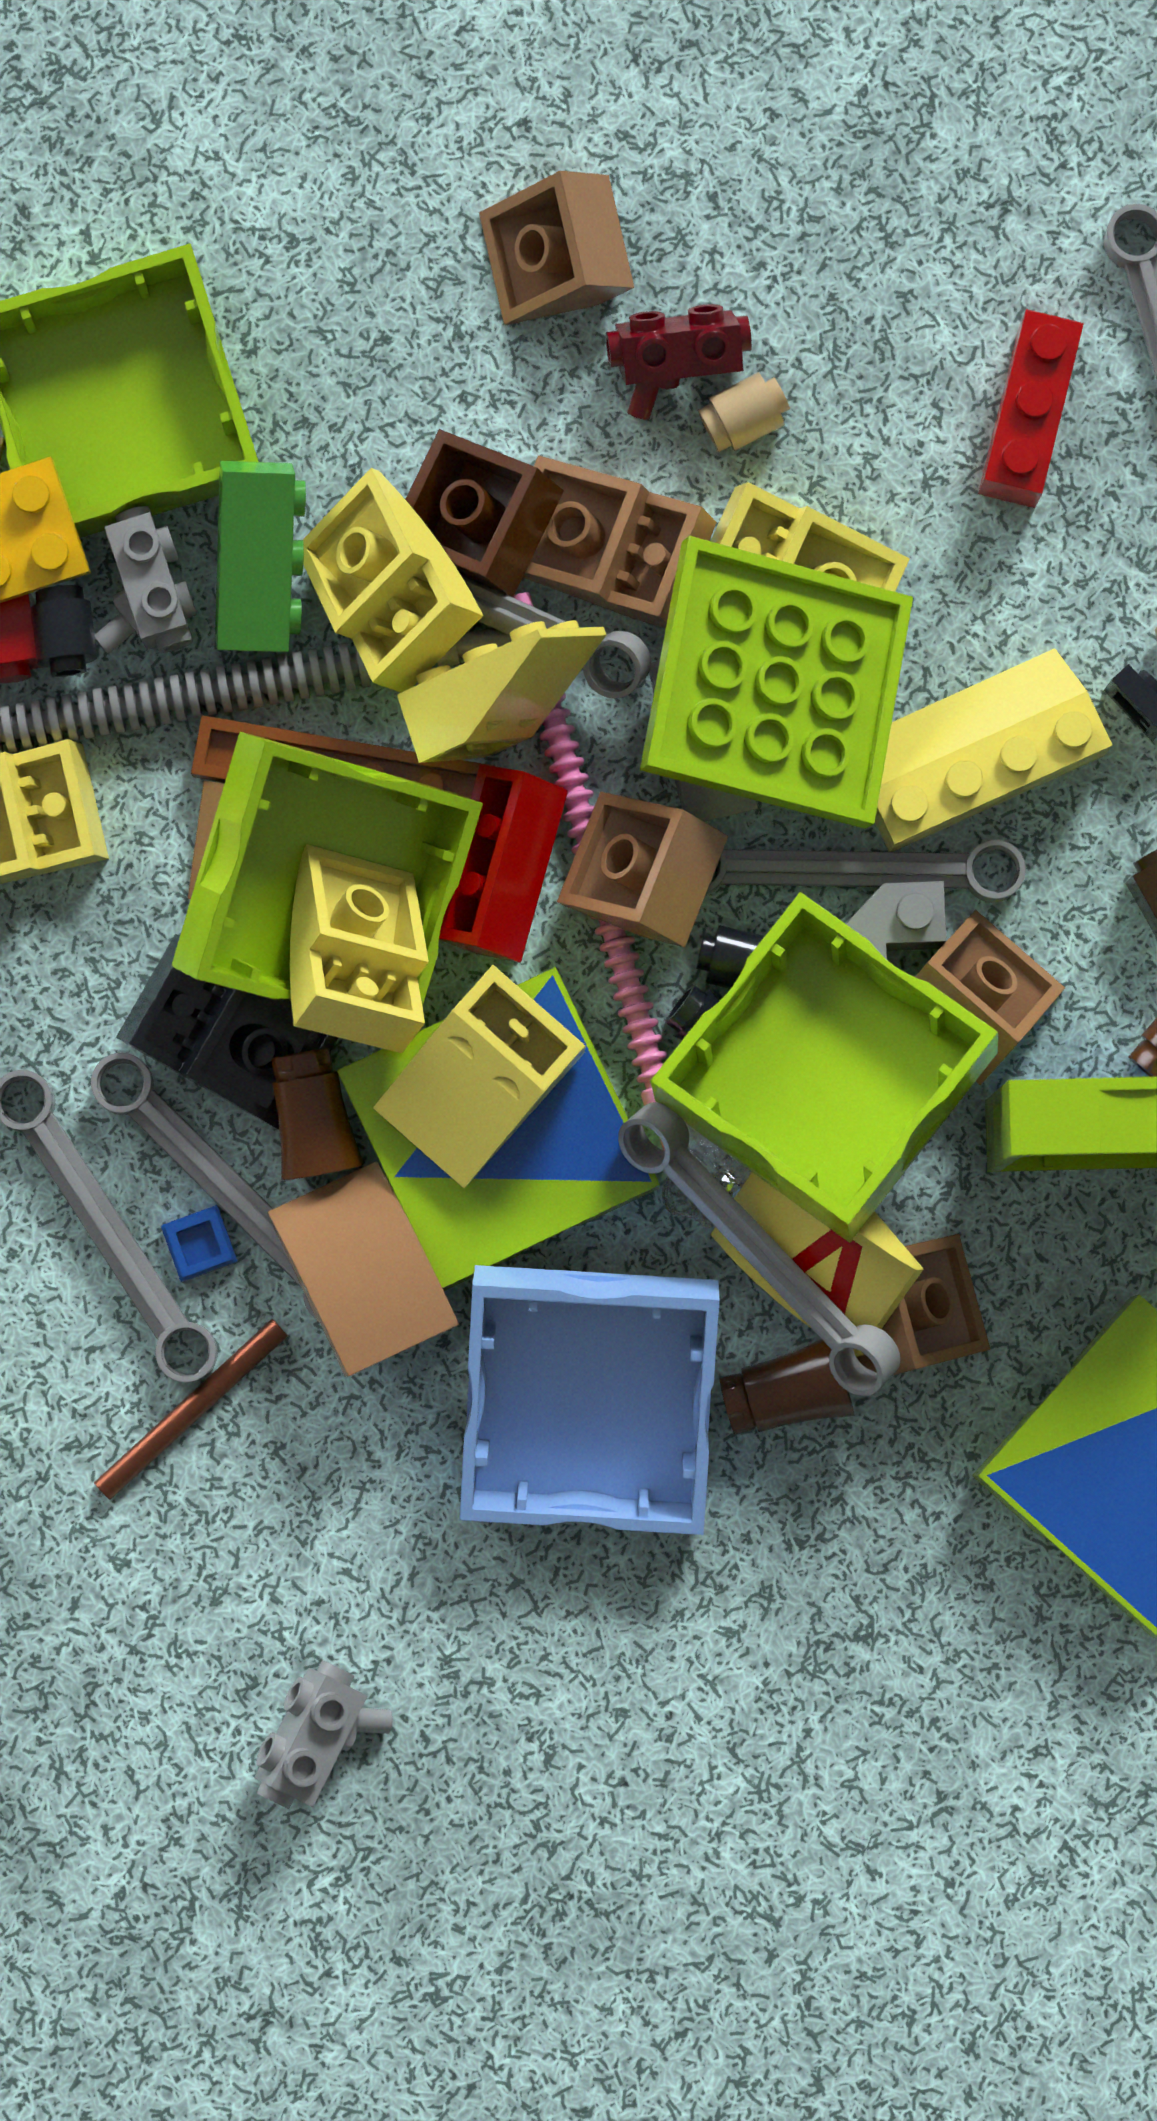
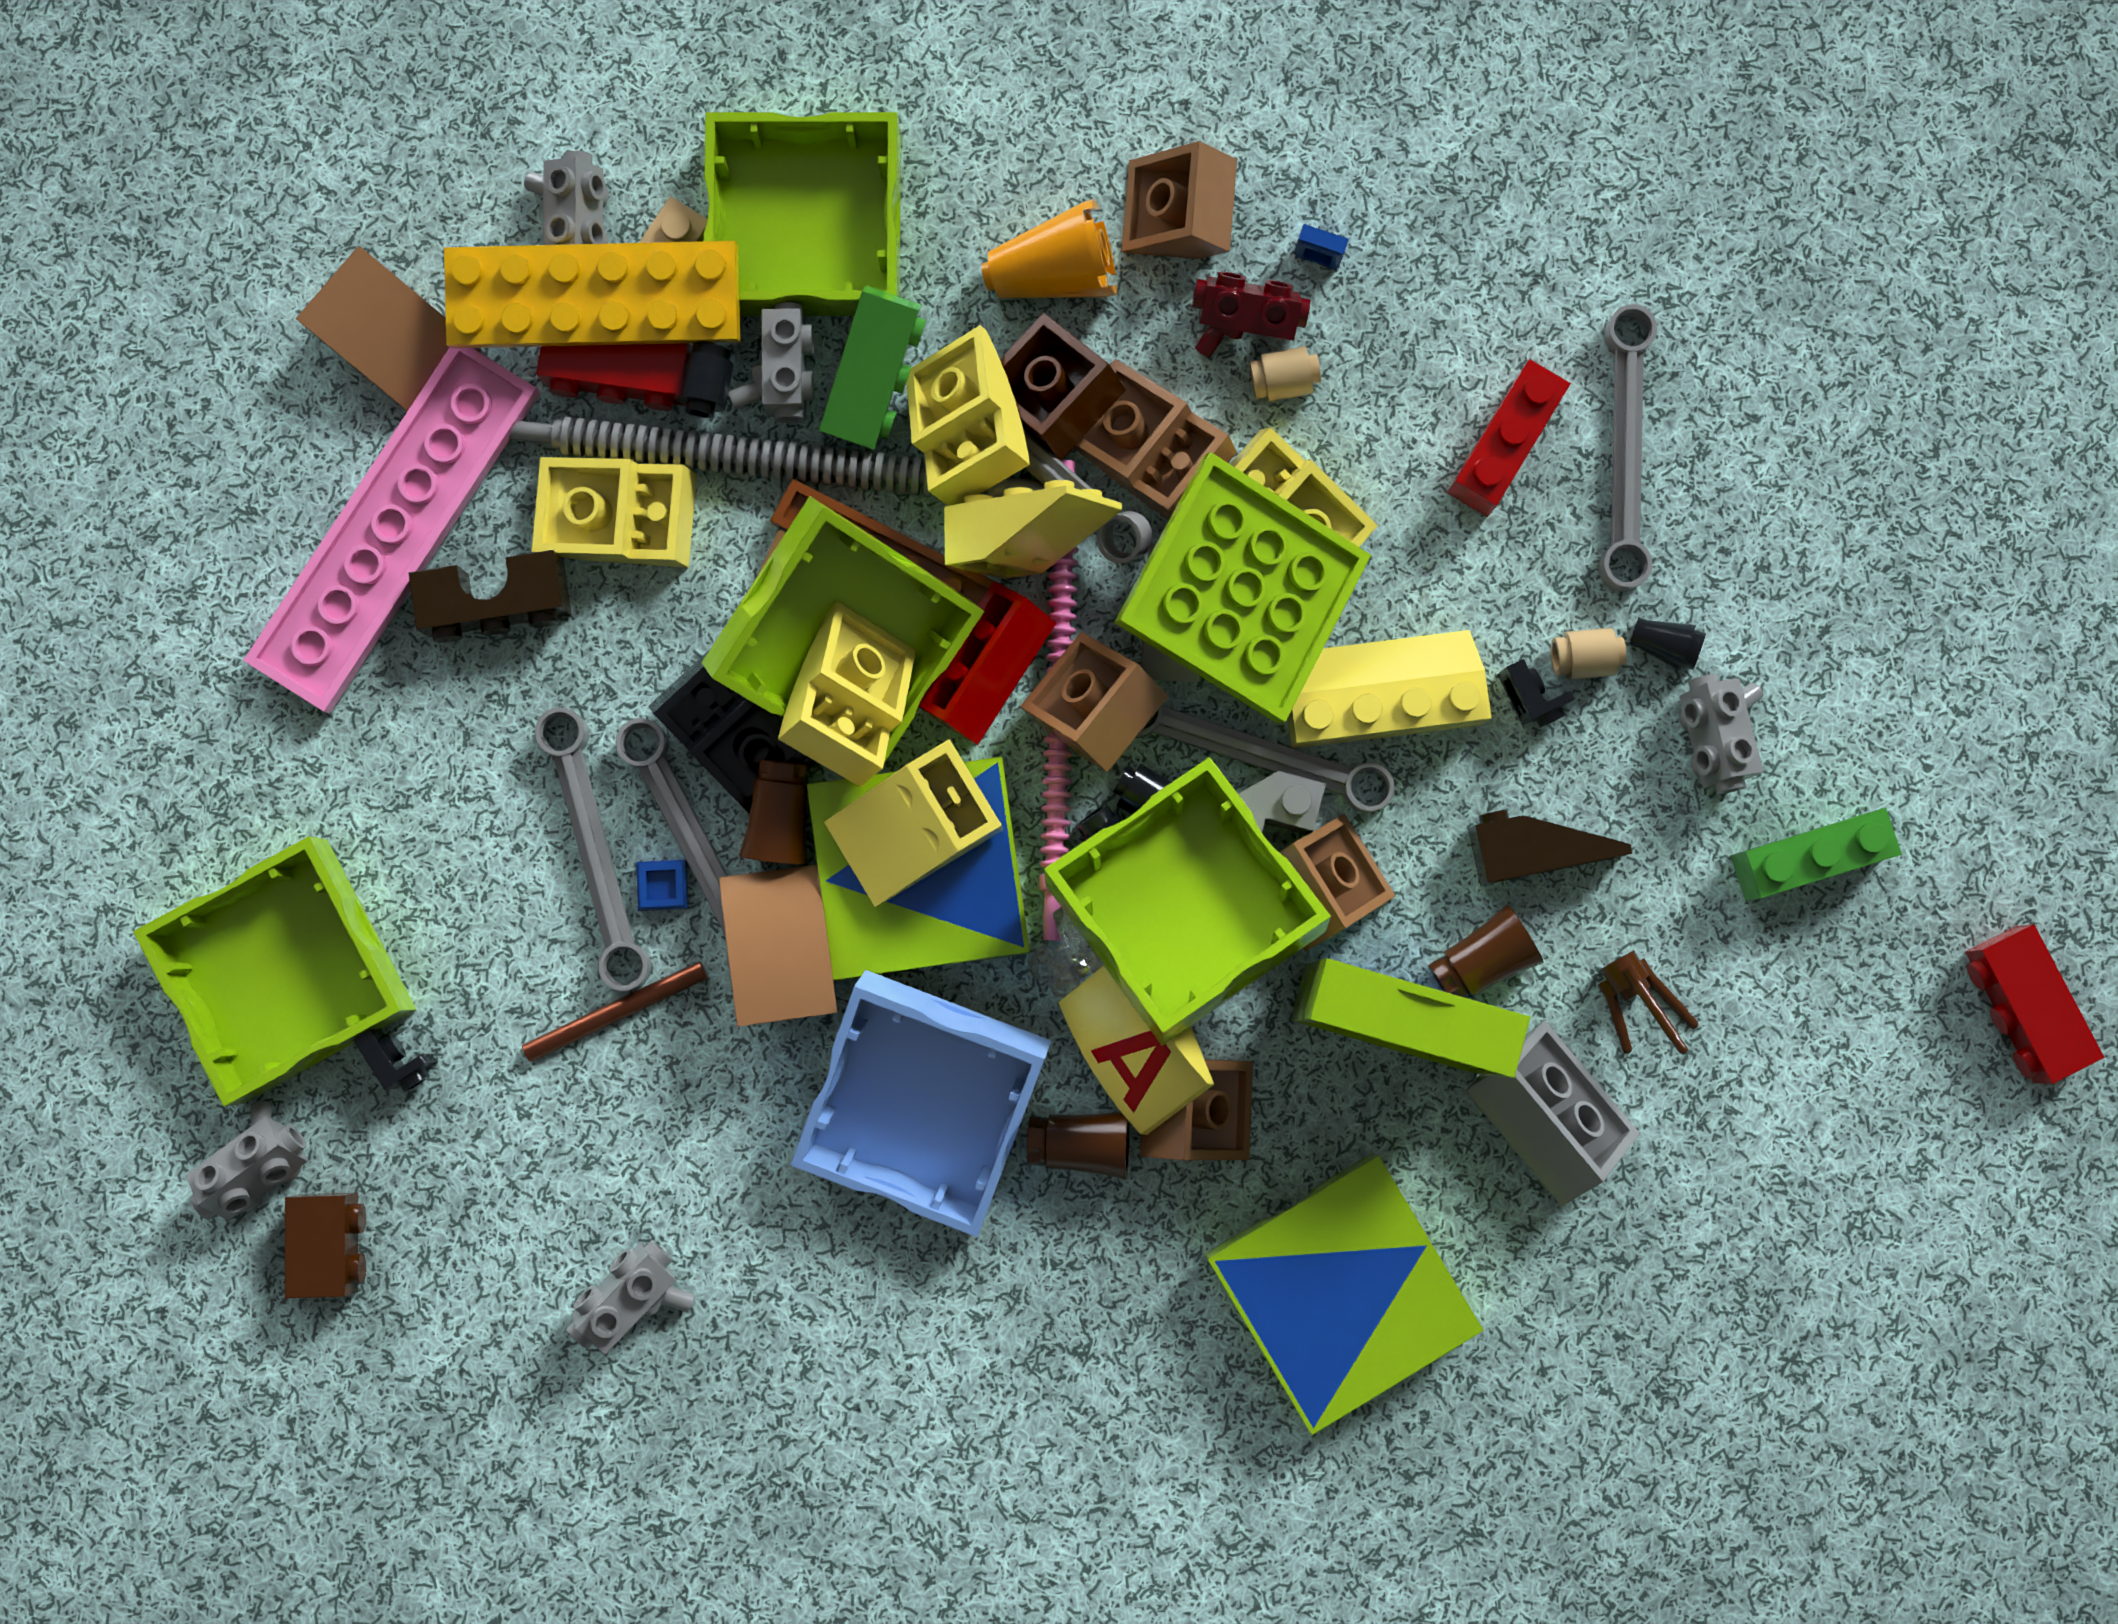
camera: 20 degrees right, 0 degrees up
(430, 360) = (1054, 259): none -> light orange cone
(739, 248) = (1320, 247): none -> blue tile
(759, 1249) = (1090, 1028): light grey piece -> none

